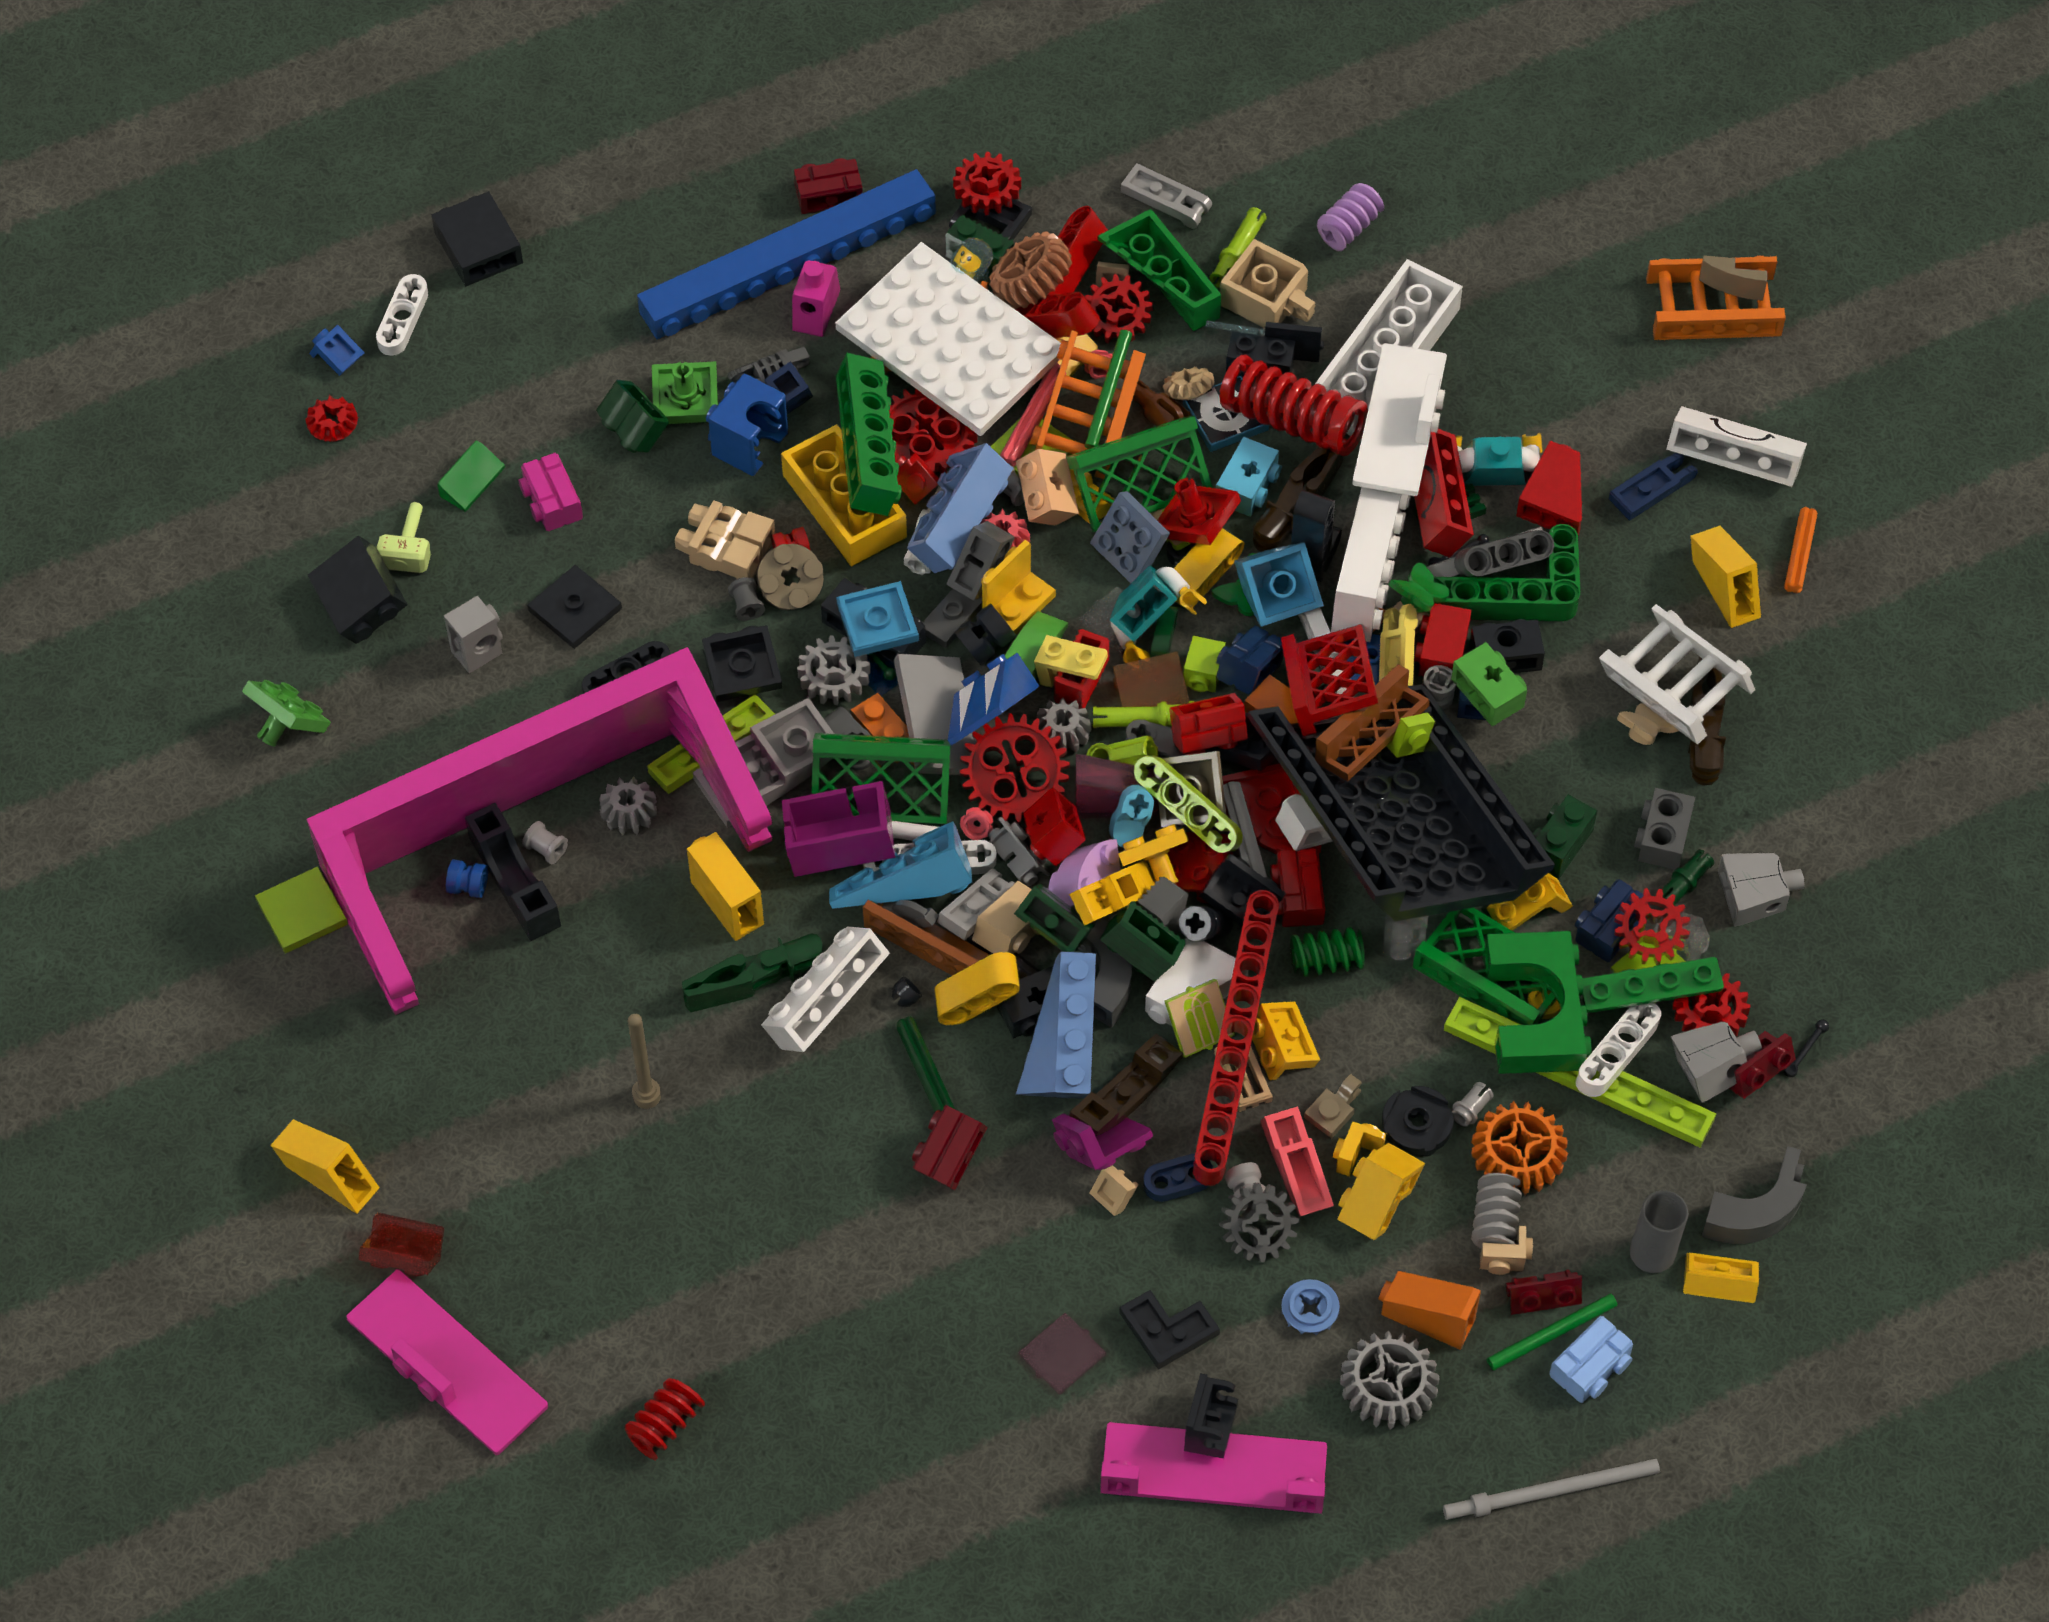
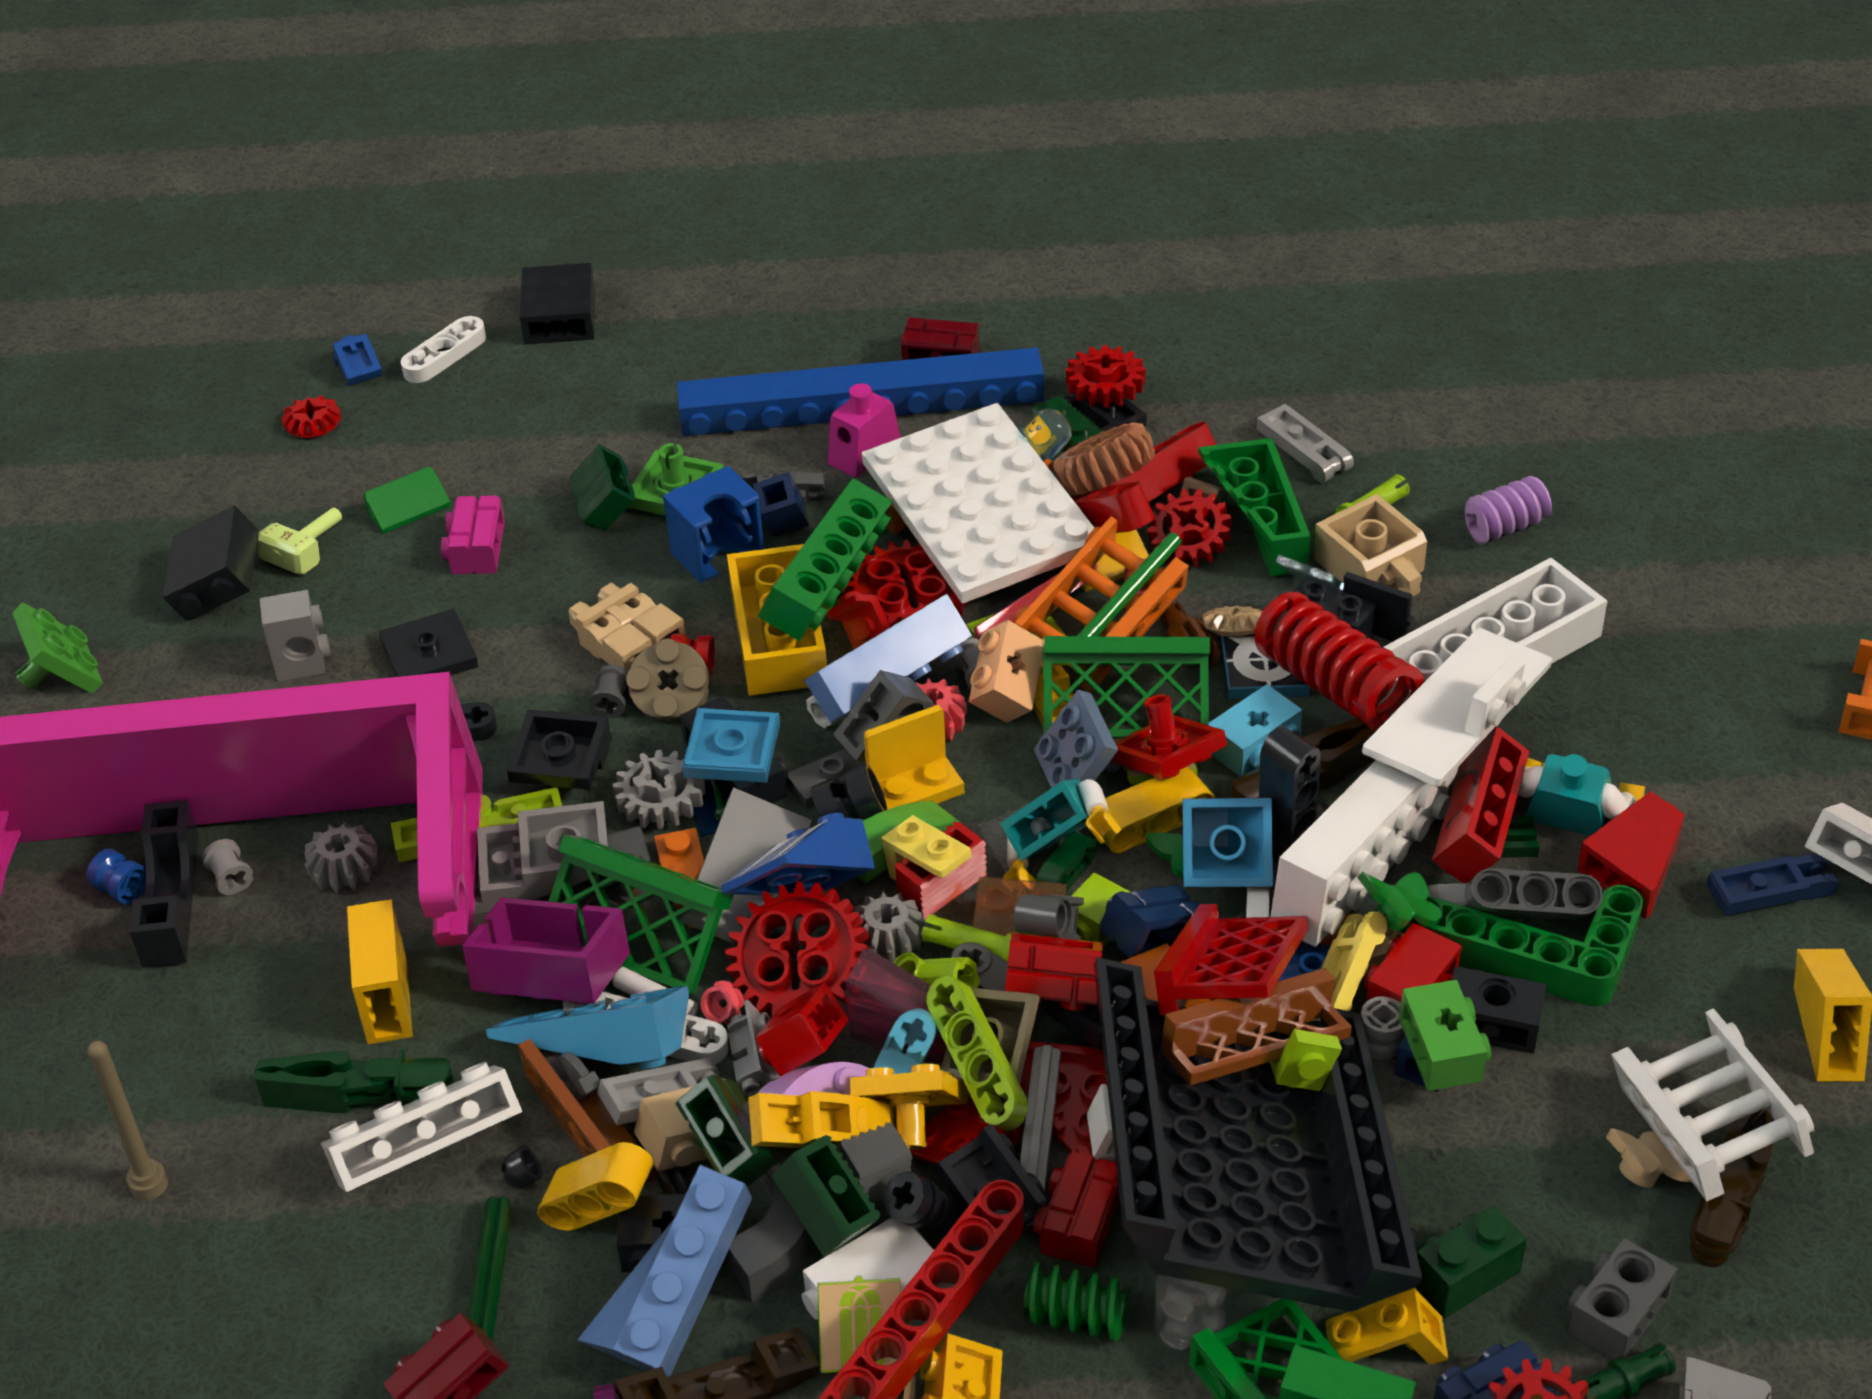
camera: 25 degrees right, 15 degrees down
(1186, 683) = (1048, 915): none -> dark grey piece

